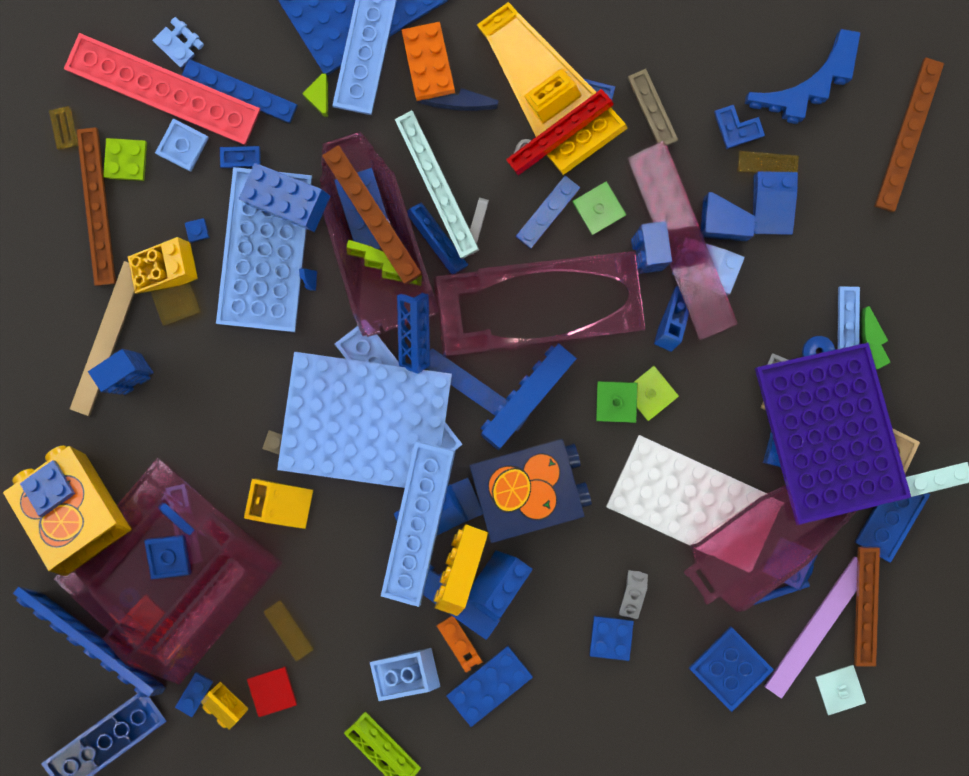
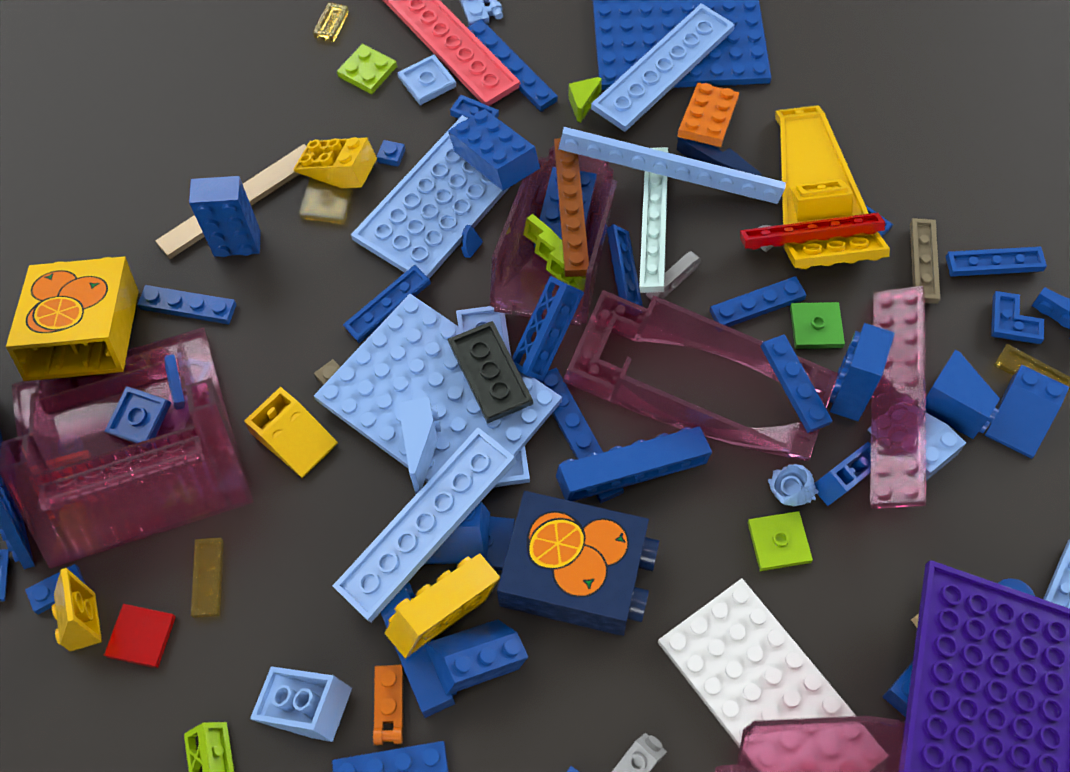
camera: 30 degrees right, 25 degrees down
(47, 488) = (71, 278): plate -> none
(96, 206) = (310, 92): dark orange plate -> none
(130, 445) = (187, 304): none -> blue plate
(280, 365) = (378, 309): none -> blue tile
(376, 467) = (419, 430): none -> light blue slope
(391, 384) = (490, 372): none -> pearl dark grey tile
(420, 136) = (671, 165): none -> light blue plate
(610, 278) = (796, 383): none -> blue plate
(617, 401) = (734, 526): bright green plate -> none
(641, 351) = (793, 485): none -> light blue hair
(704, 81) = (996, 261): none -> blue plate

